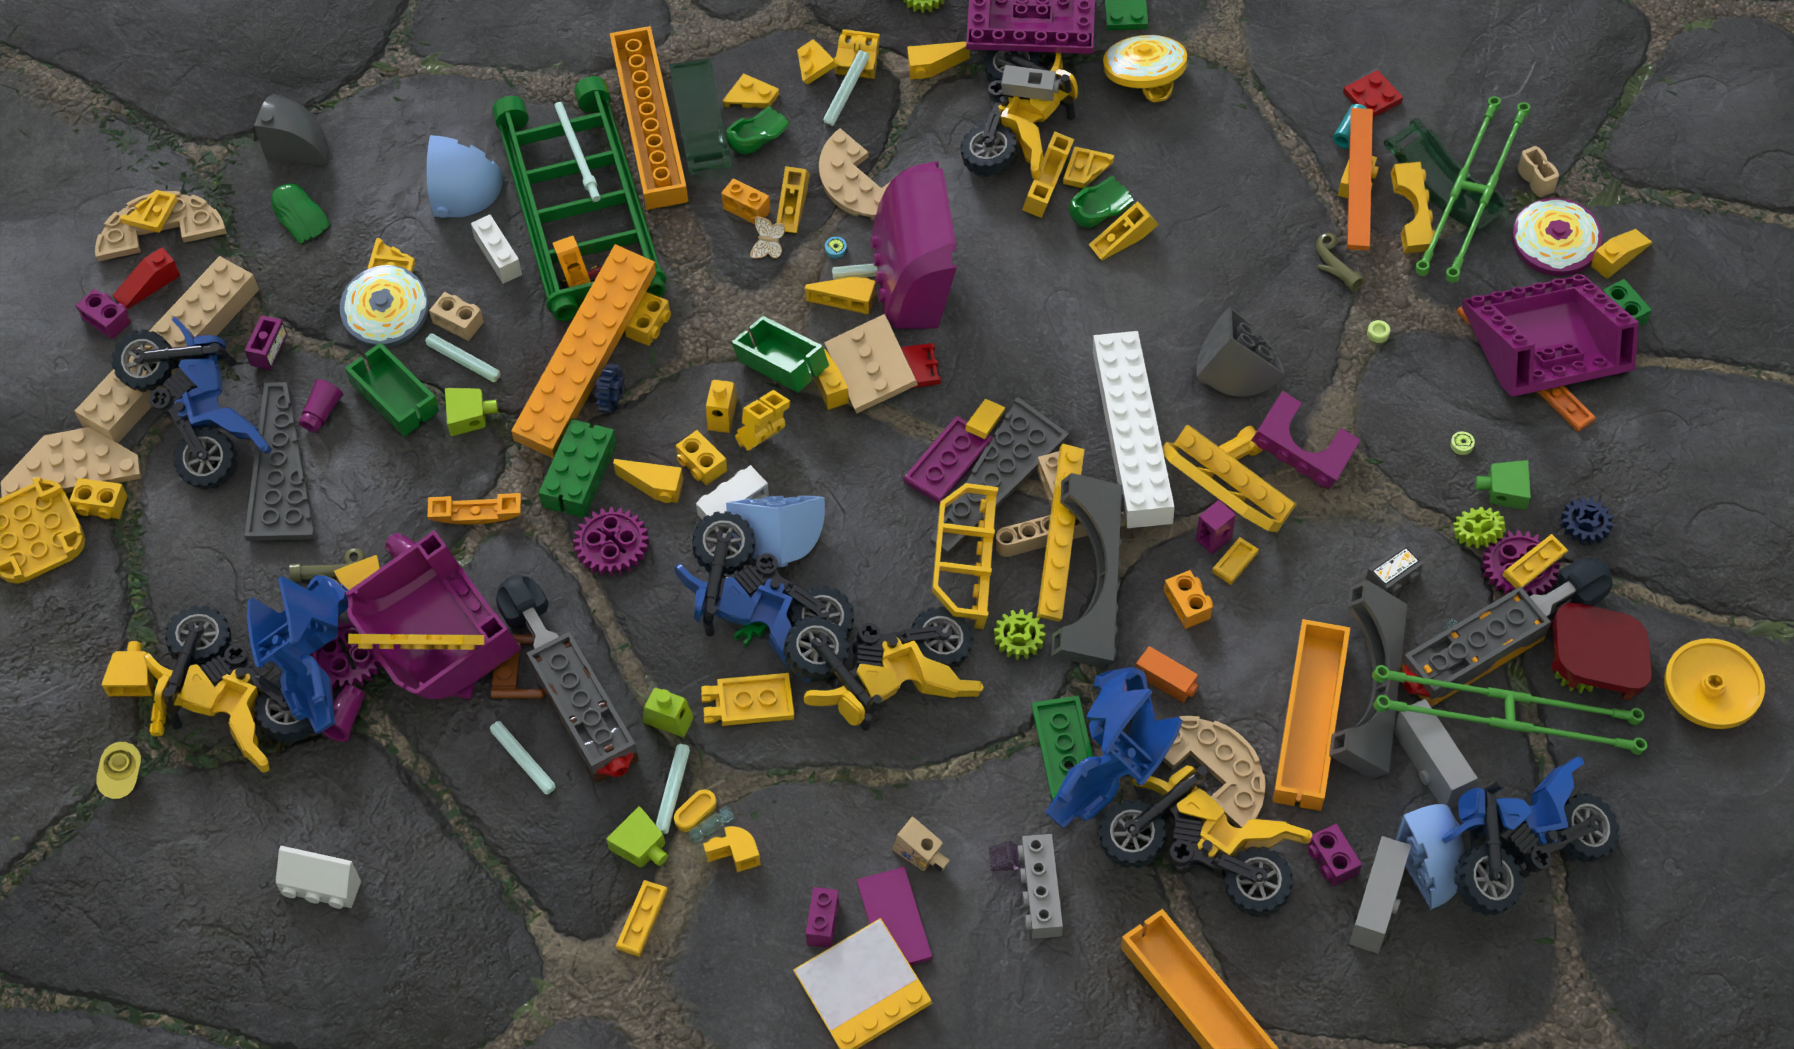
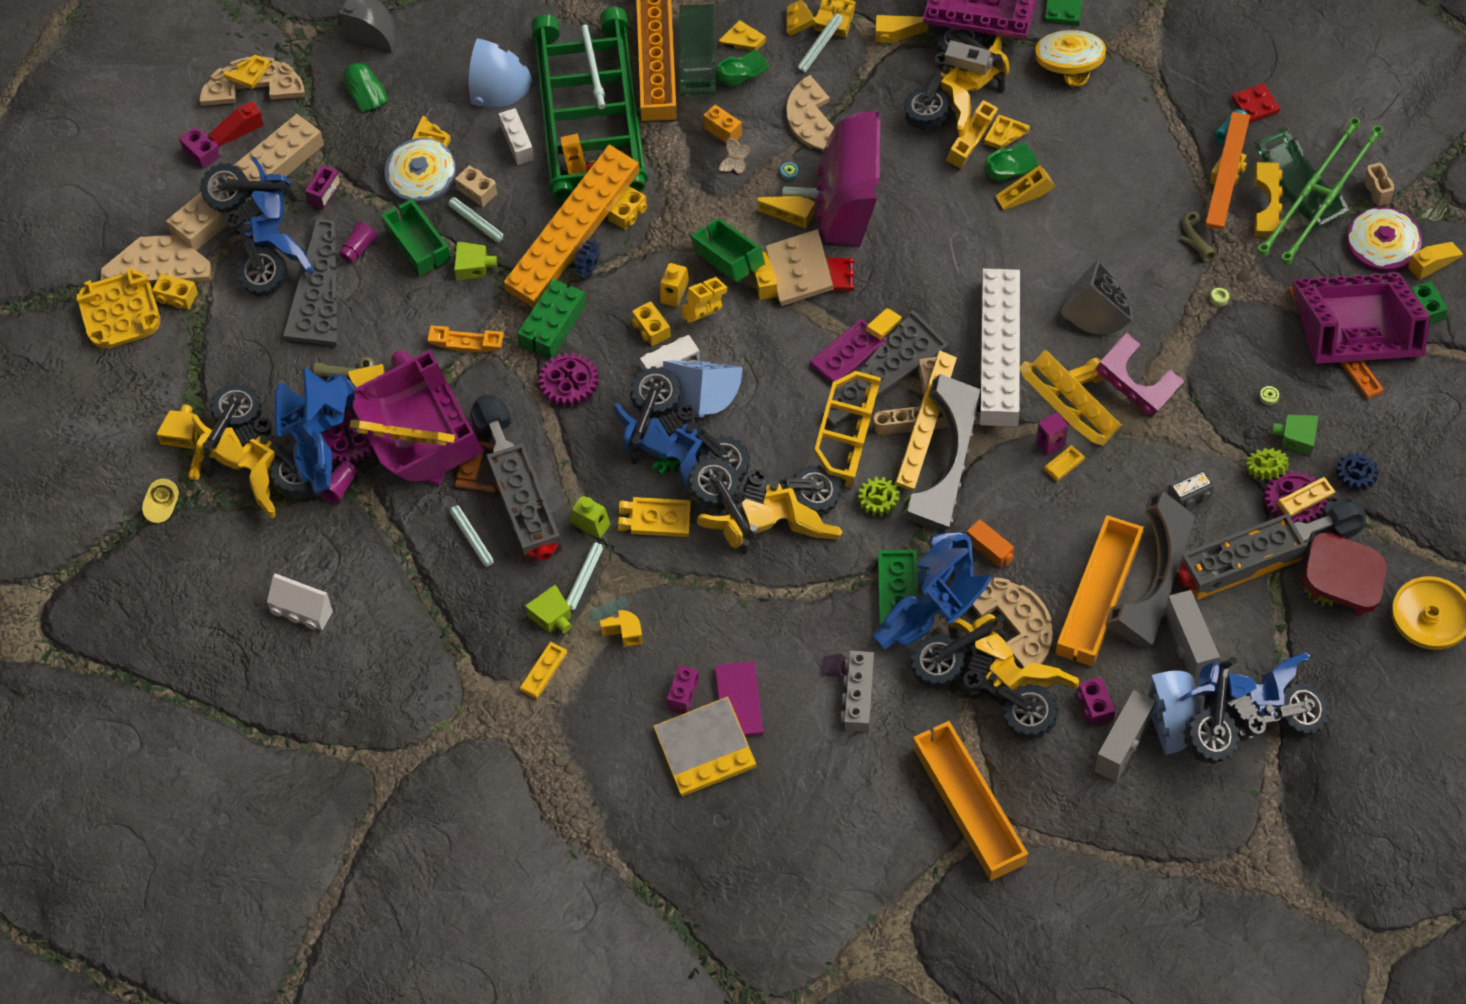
camera: 10 degrees right, 0 degrees up
(655, 480) = (611, 336): yellow slope -> none
(695, 810) = (599, 595): yellow tile -> none
(793, 198) = (761, 126): yellow slope -> none
(920, 846) = (768, 646): tan torso -> none
(1184, 600) = (1017, 488): light orange brick -> none
(1510, 722) = (1257, 617): bright green bar -> none

